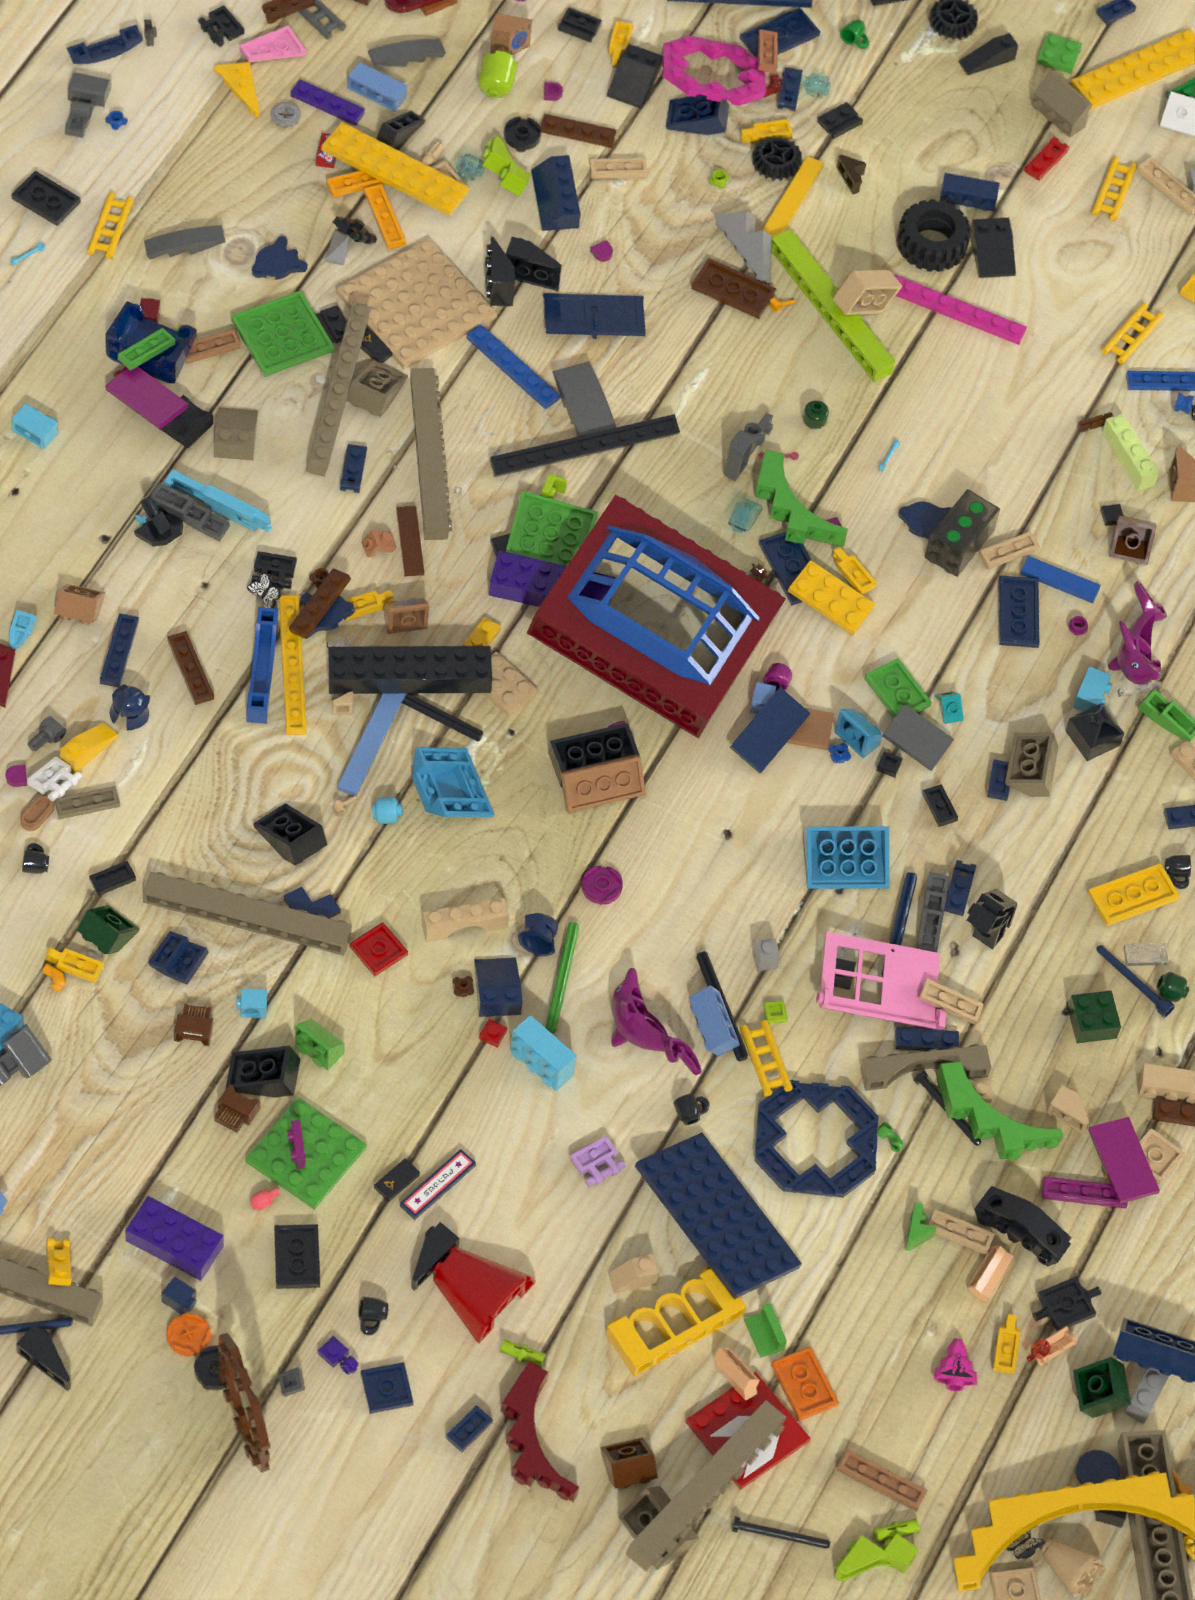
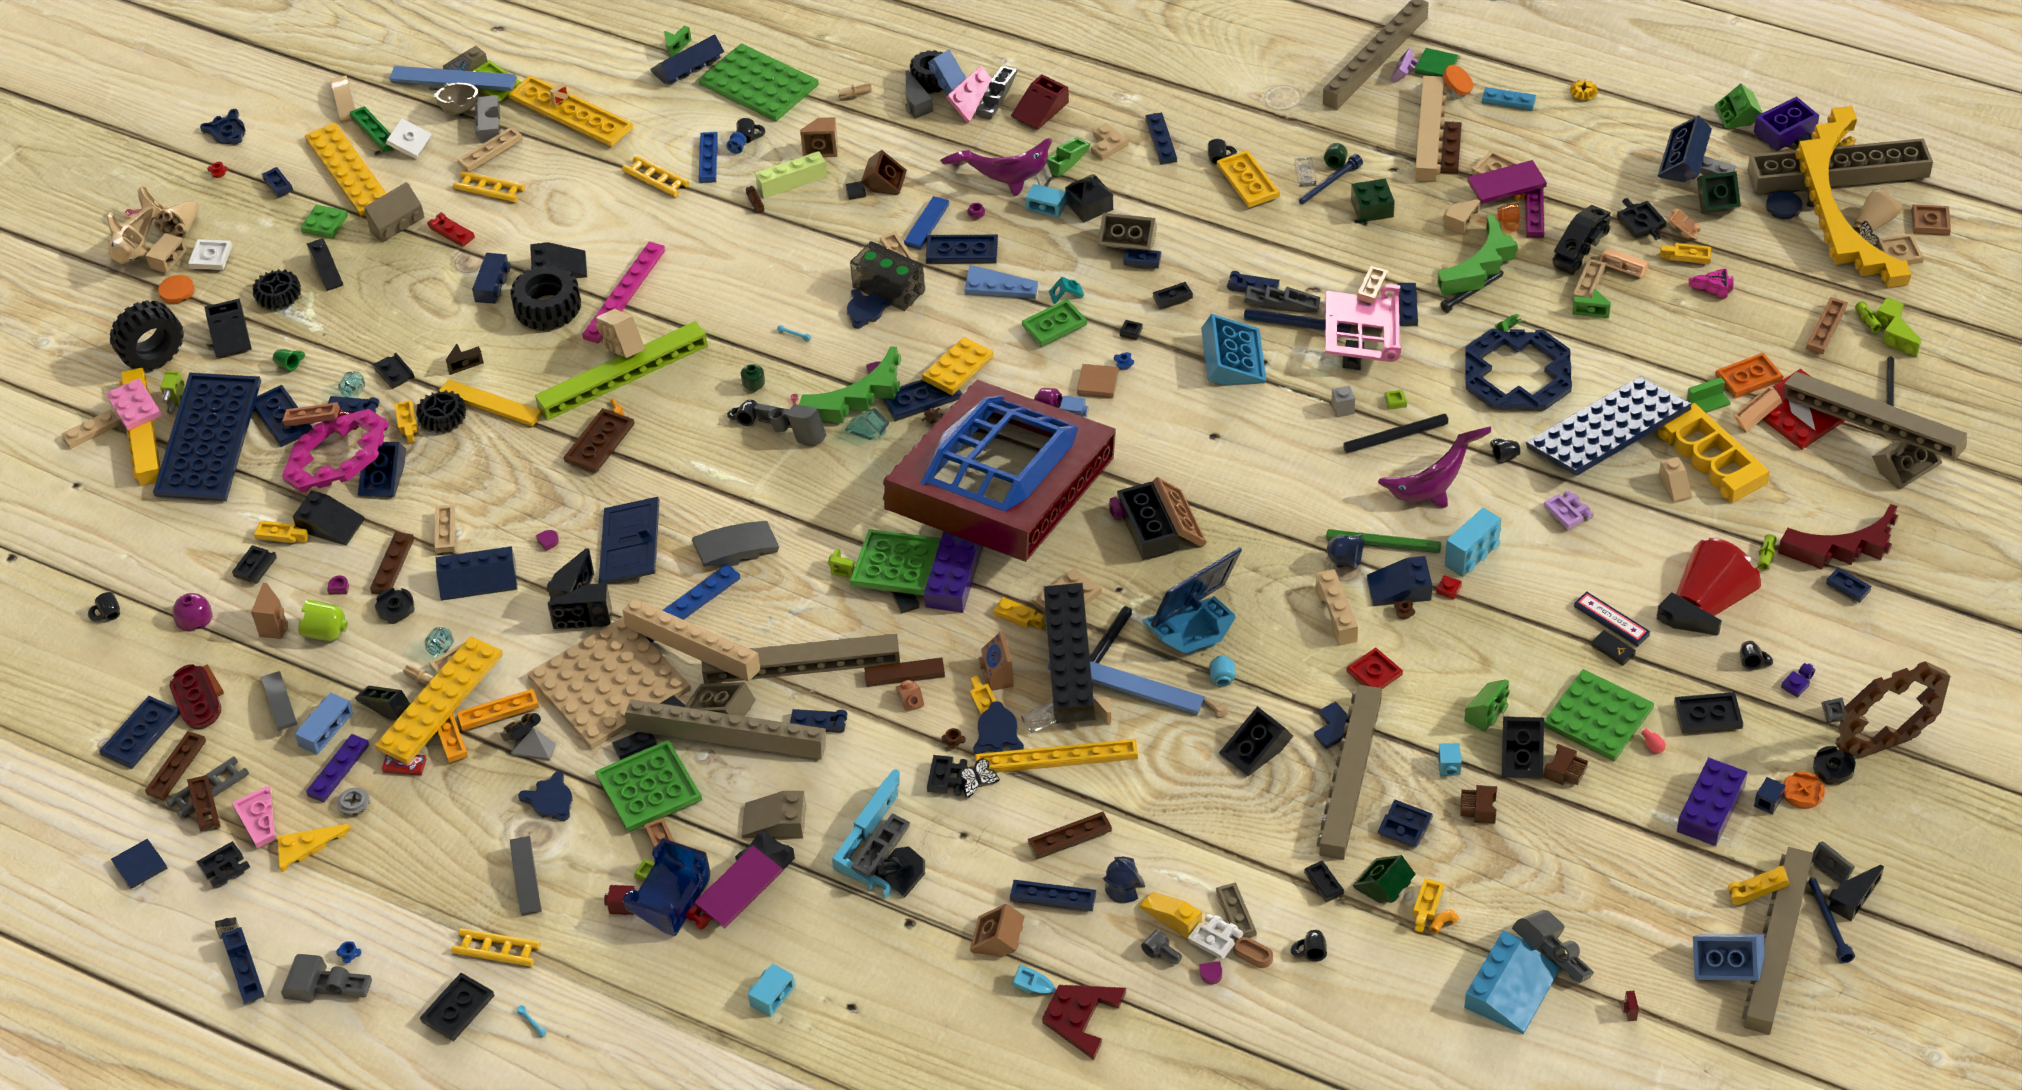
camera: 80 degrees left, 10 degrees down
(92, 1336) = (1832, 862): none -> dark grey plate
(146, 349) = (680, 886): bright green plate -> none
(262, 665) = (1107, 773): blue arch -> none
(295, 1136) = (1601, 709): magenta plate -> none
(319, 603) = (992, 729): reddish brown plate -> none
(386, 1388) = (1821, 645): dark blue tile -> none
(444, 355) = (691, 639): none -> tan brick
(478, 778) = (1195, 588): none -> dark blue door
(500, 162) = (438, 614): lime arch -> none
(584, 445) = (789, 543): black plate -> none
(602, 885) = (1280, 517): magenta tile -> none
(629, 1463) = (1853, 478): reddish brown slope -> none
(713, 1021) = (1417, 432): medium blue brick -> none
(719, 178) = (462, 454): lime plate -> none
(750, 244) = (552, 423): light grey slope -> none
(760, 1069) = (1453, 391): yellow bar -> none
(770, 406) = (744, 414): none -> black piece
(770, 730) = (1109, 400): dark blue tile -> none
(853, 571) = (926, 353): yellow hinge -> none
(857, 732) = (1105, 344): dark azure slope -> none
(882, 1071) = (1446, 326): dark tan arch -> none
(918, 737) = (1105, 307): dark grey tile -> none
(962, 641) = (998, 284): none -> medium blue wing
(991, 916) = (1297, 247): black brick -> none
(1039, 1349) = (1697, 227): clear red piece -> none
(1074, 1161) = (1509, 214): none -> clear orange piece

